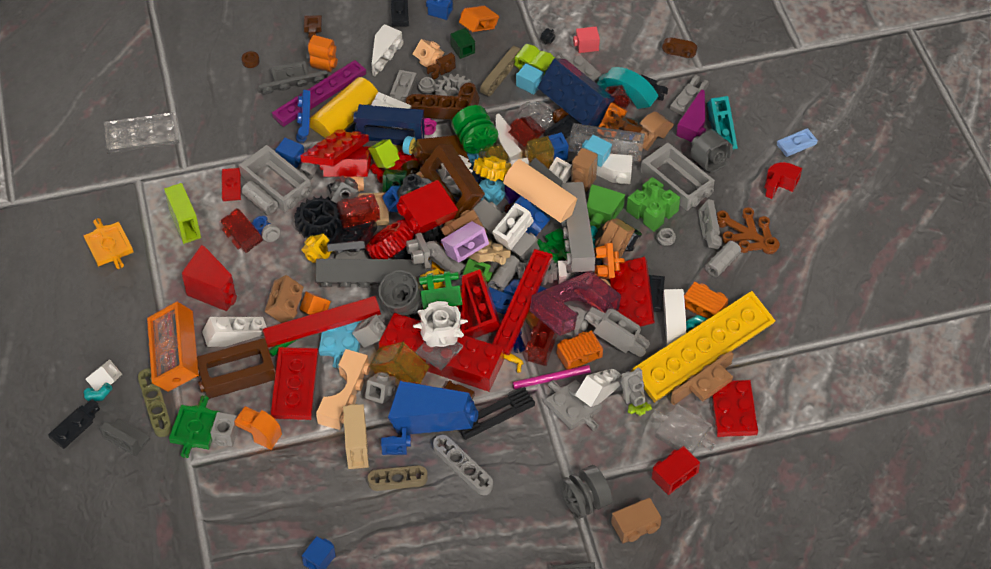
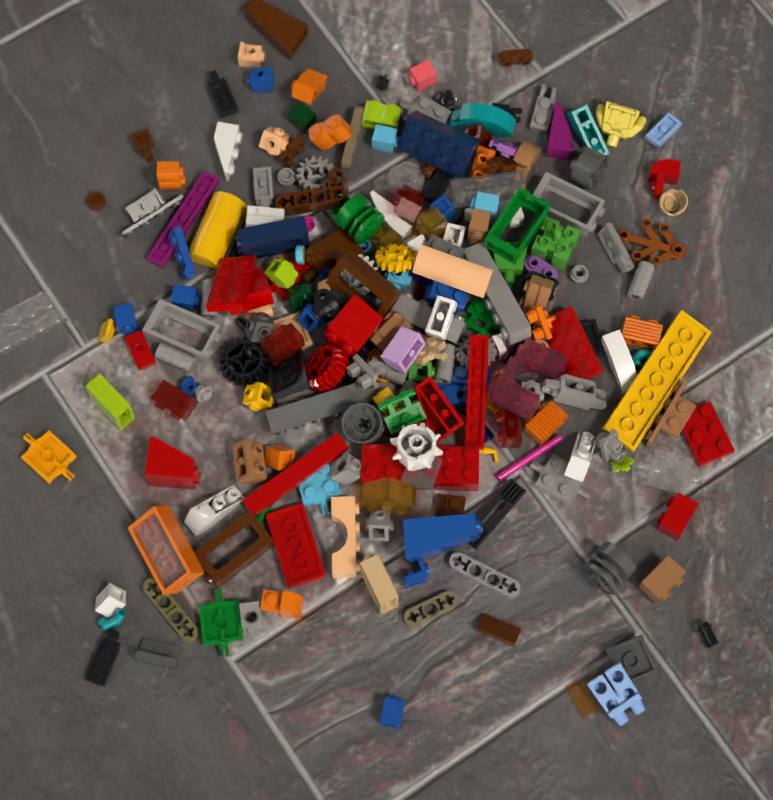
camera: 20 degrees left, 15 degrees up
(210, 161) = (107, 331): none -> yellow slope
(230, 154) = (125, 318): none -> blue brick
(455, 517) = (498, 630): none -> reddish brown slope
(480, 58) = (330, 132): none -> orange brick
(601, 64) = (446, 100): none -> black plant
(631, 154) = (524, 199): none -> green piece
(632, 220) = (542, 267): none -> medium lavender plate
(636, 113) = (507, 148): none -> medium lavender plate
(757, 122) = (619, 121): none -> light yellow torso
(781, 202) = (673, 202): none -> tan hair

